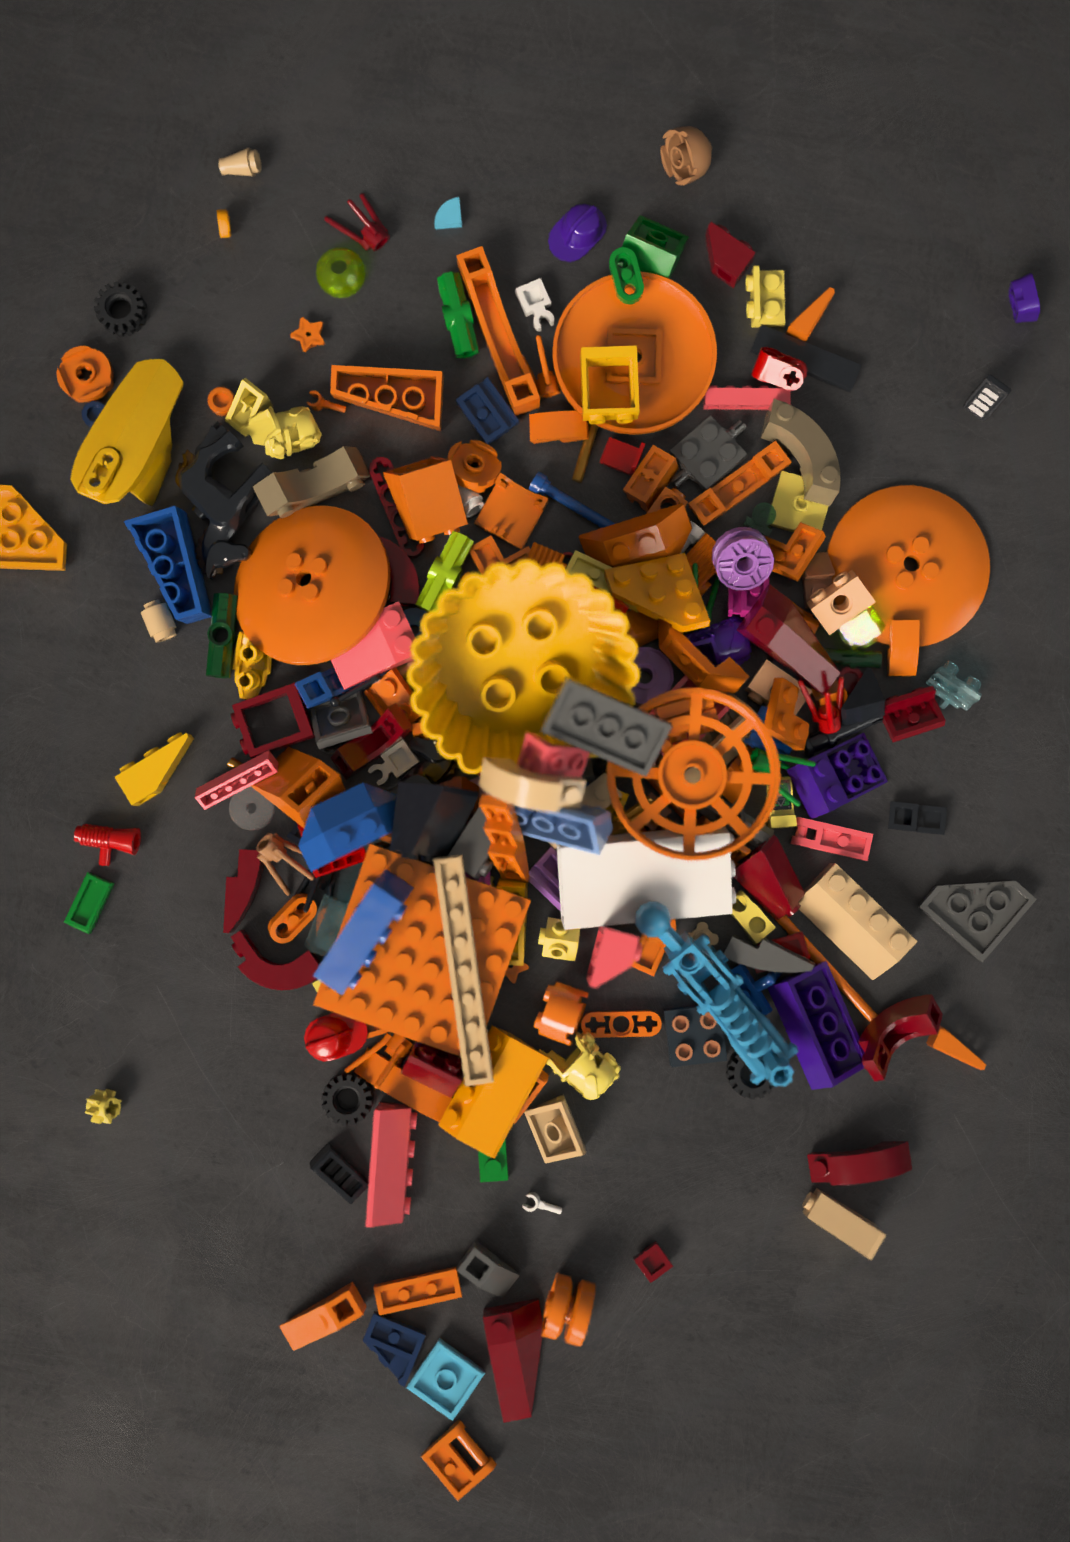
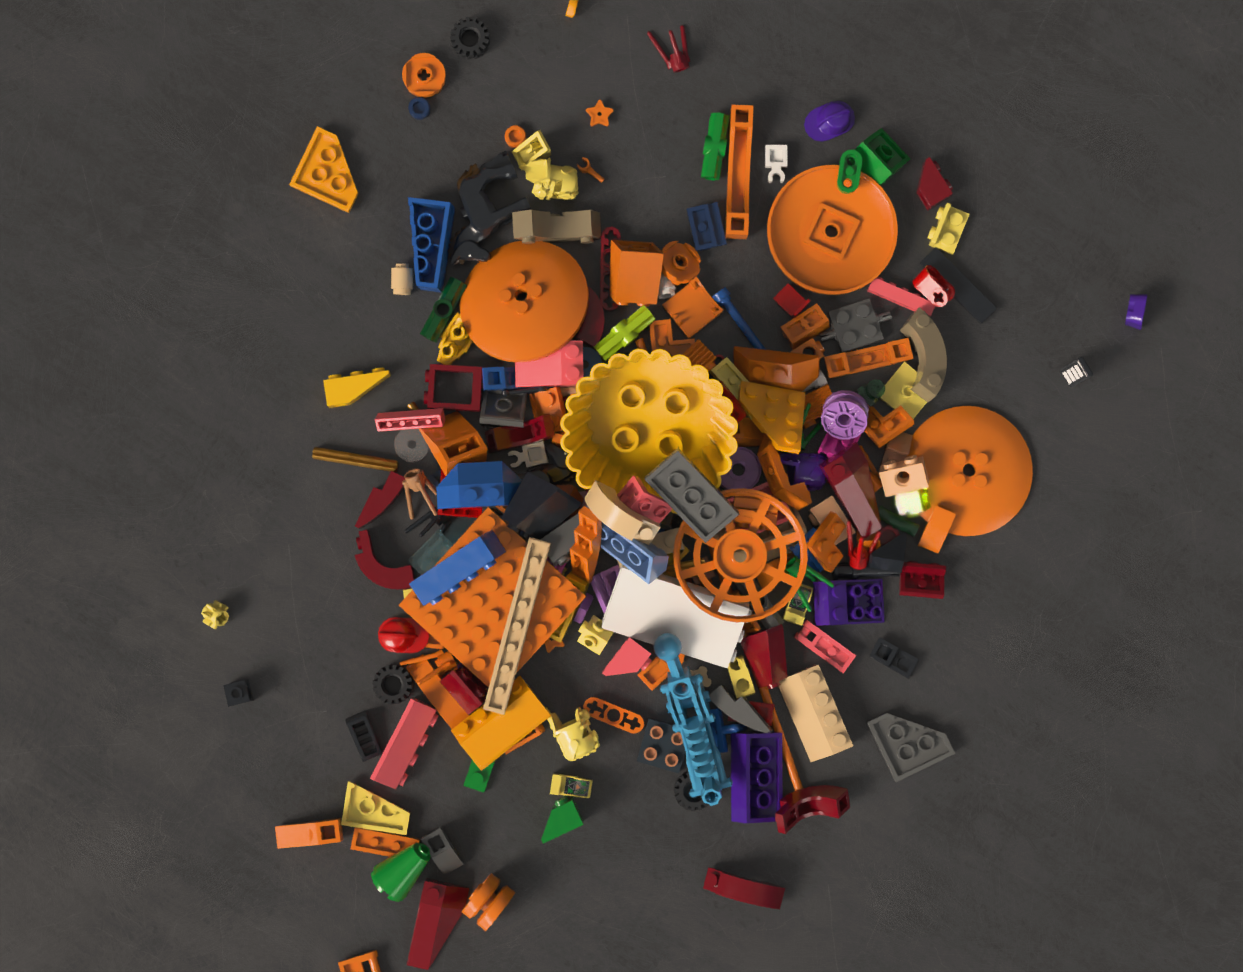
camera: 20 degrees right, 0 degrees up
(89, 902) = (265, 463): green tile -> none
(106, 838) = (298, 421): red piece -> none
(134, 434) = (441, 137): yellow piece -> none
(169, 1187) = (238, 692): none -> black brick
(192, 854) = (355, 459): none -> pearl gold axle
(292, 917) = (408, 537): orange plate -> none
(342, 284) = (642, 88): clear neon green piece -> none
(387, 1259) = (373, 812): none -> light yellow wing
(392, 391) = (648, 187): orange wedge -> none
(394, 1344) = (351, 874): dark blue wing -> none
(445, 1379) = (378, 917): medium azure plate -> none
(449, 215) = (740, 68): medium azure tile -> none
(449, 1320) = (400, 871): none -> green cone
(533, 915) = (583, 608): none -> medium lavender tile
(541, 1204) = (500, 821): white hand -> none
(547, 382) = (759, 223): orange plant -> none
(555, 1130) = (533, 771): tan slope -> none
(558, 425) = (753, 259): orange slope -> none
(561, 1013) = (574, 687): orange brick -> none
(584, 454) = (765, 287): pearl gold bar -> none
(606, 1128) = (570, 786): none -> leg
(610, 357) = (813, 227): yellow window -> none
(614, 1174) = (562, 819): none -> green slope
(653, 1262) = (563, 896): dark red plate -> none
(686, 154) = (933, 98): medium nougat cylinder -> none
(806, 322) = (968, 260): orange slope -> none
(843, 1223) = (712, 925): tan slope -> none
(950, 1045) = (846, 833): orange slope -> none
(954, 690) = (960, 576): clear light blue hips -> none

